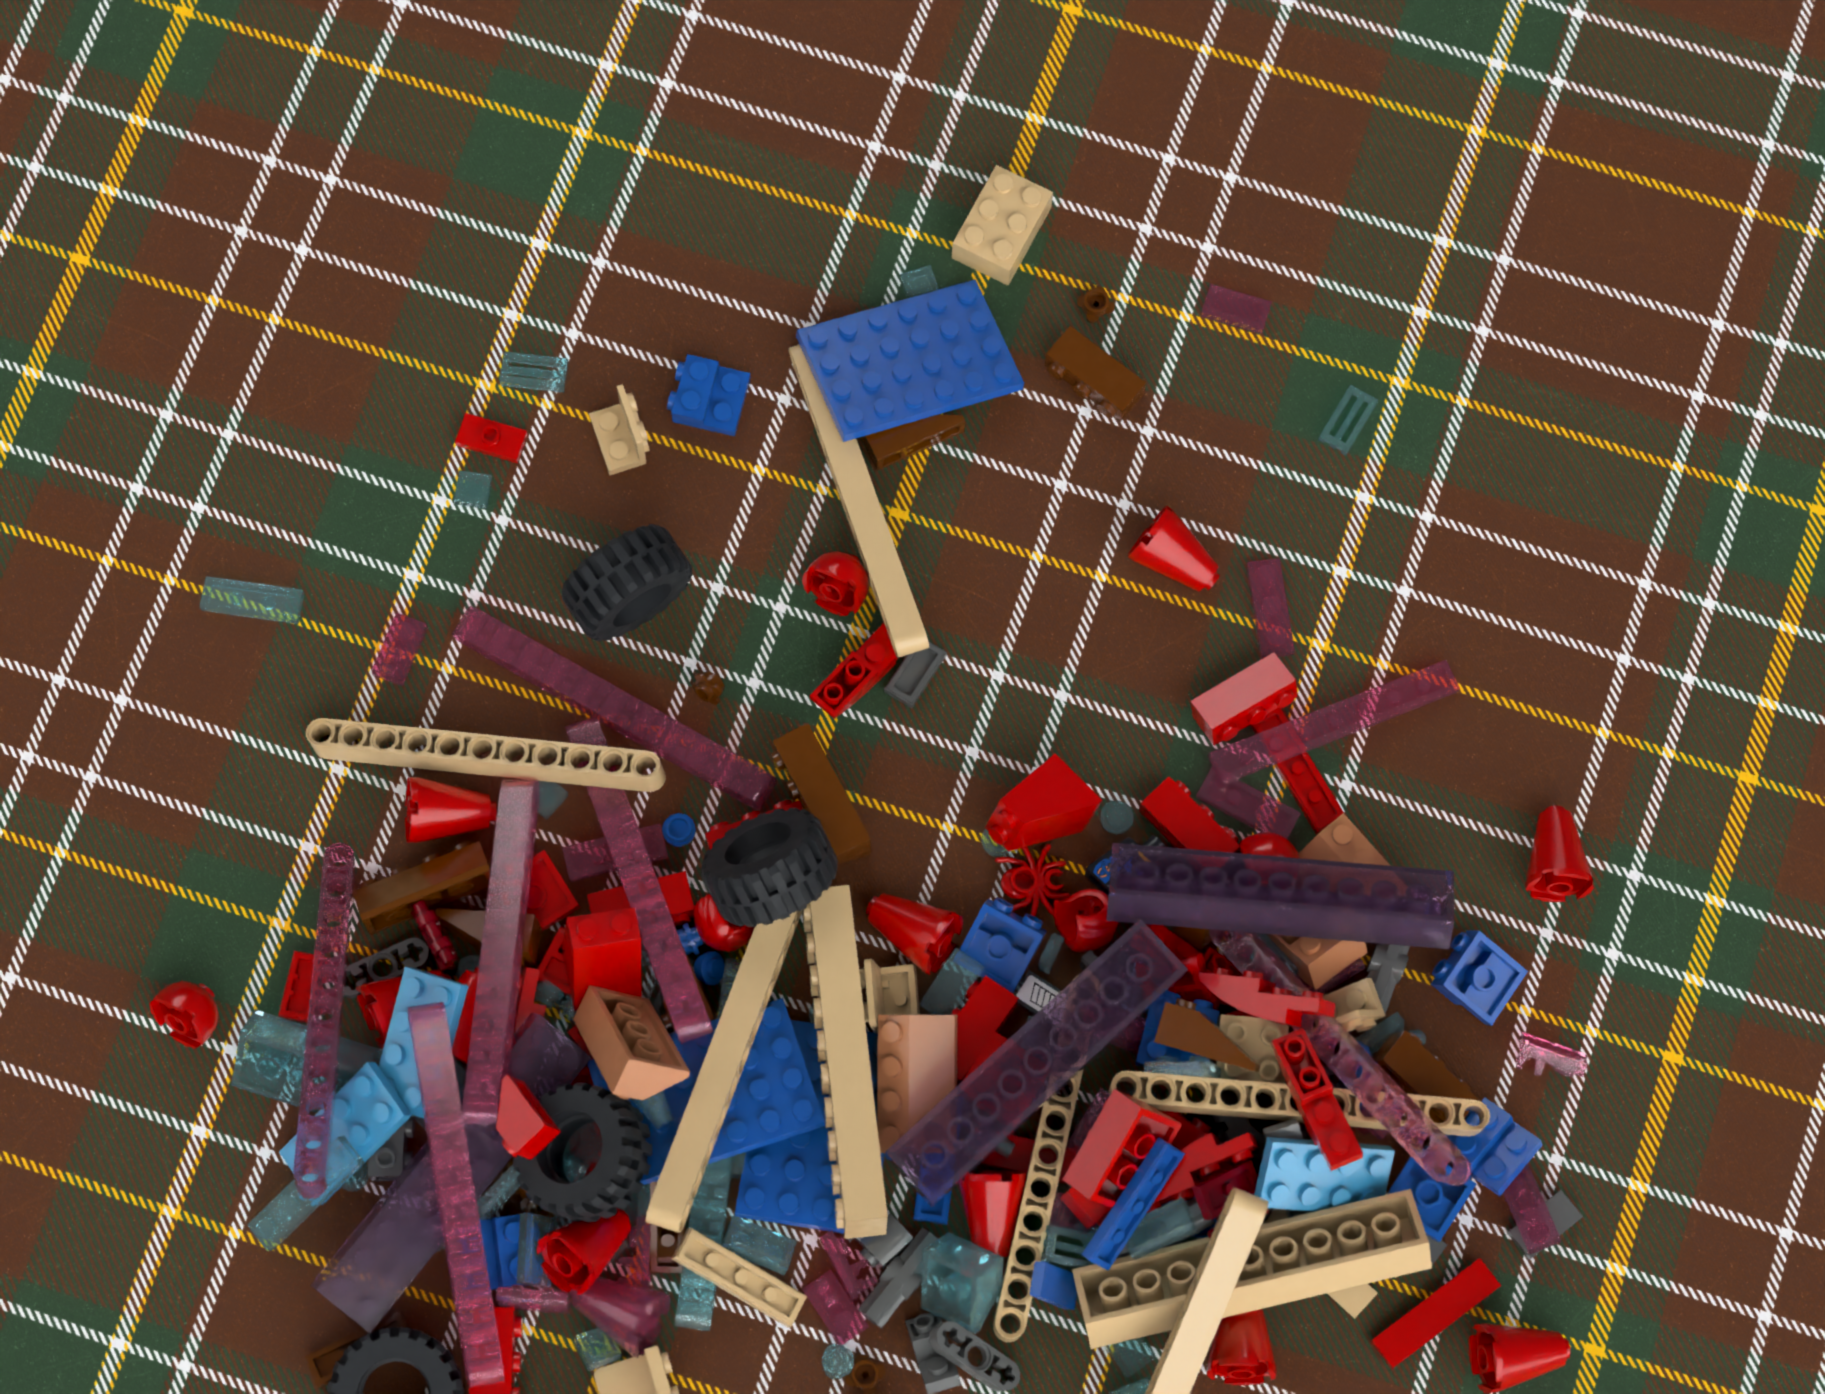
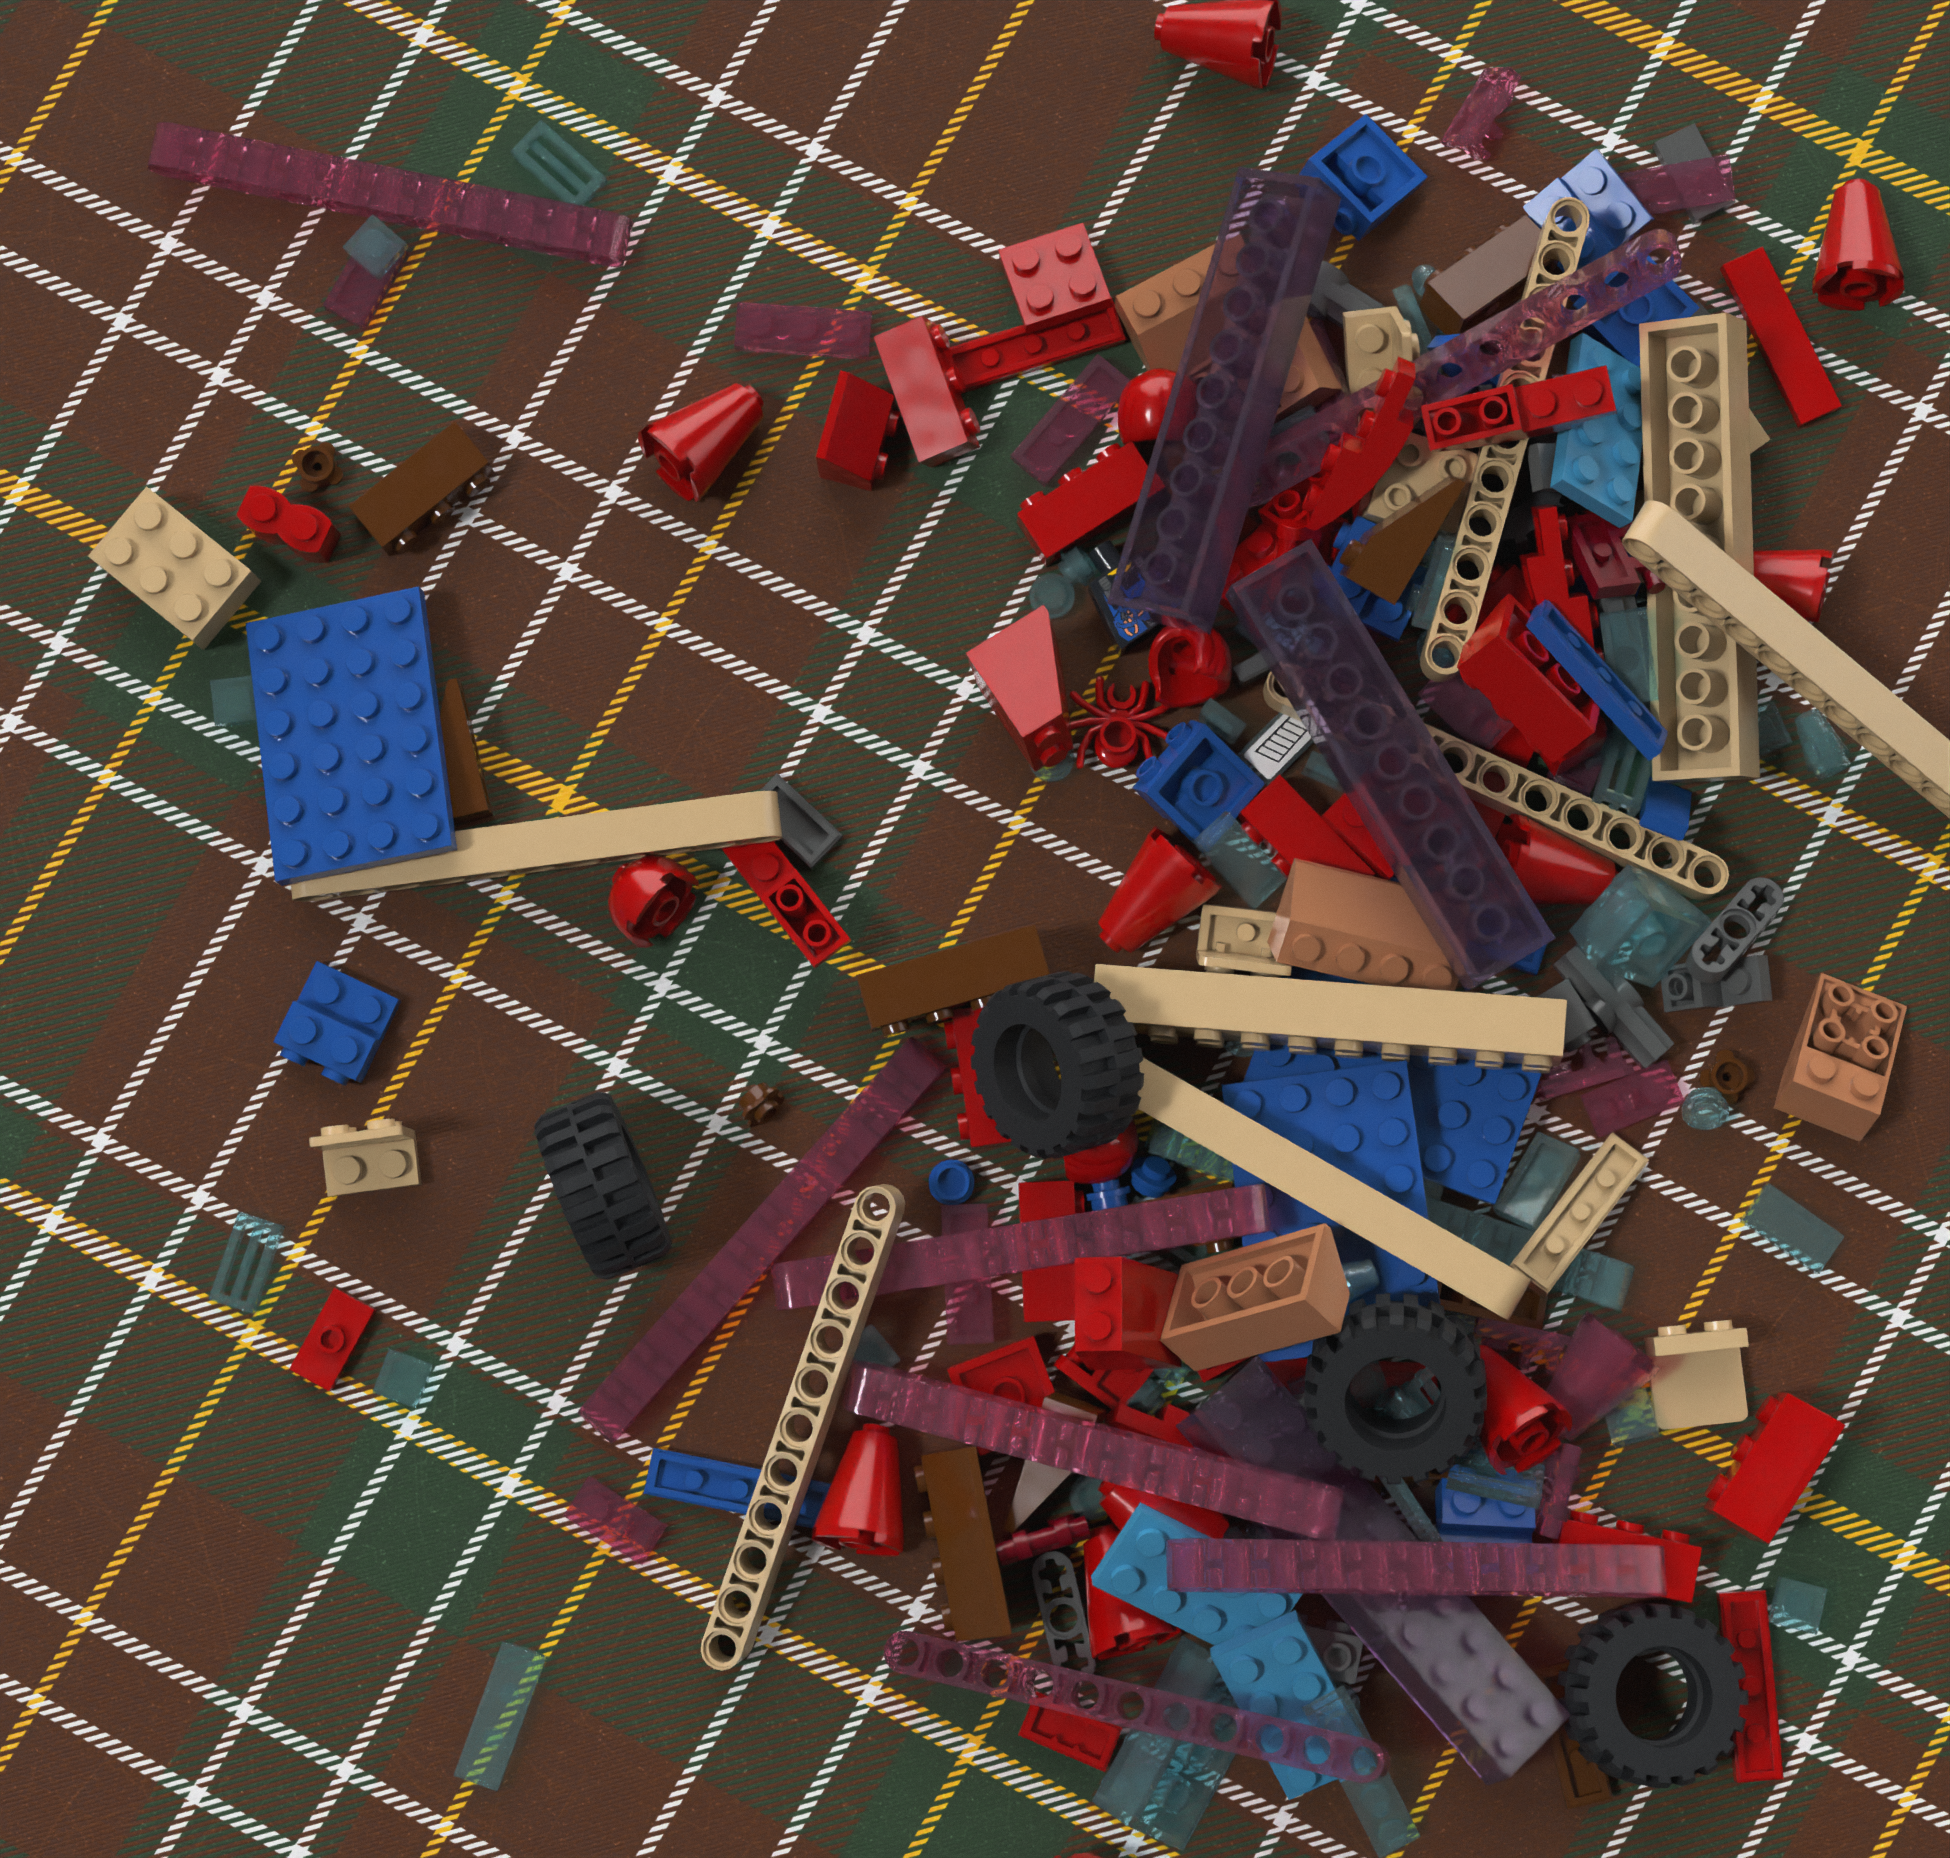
camera: 75 degrees left, 10 degrees up
(436, 708) = (721, 1485): none -> blue tile
(523, 1120) = (1345, 1459): red slope -> none
(1049, 291) = (296, 525): none -> red brick
(1142, 828) = (1077, 566): none -> clear light blue plate
(1201, 653) = (856, 433): none -> red slope
(1258, 308) = (375, 247): none -> clear light blue plate
(1299, 313) = (390, 194): none -> clear pink beam
(1333, 722) = (982, 283): clear pink tile -> none
(1350, 773) = (1055, 278): none -> plate

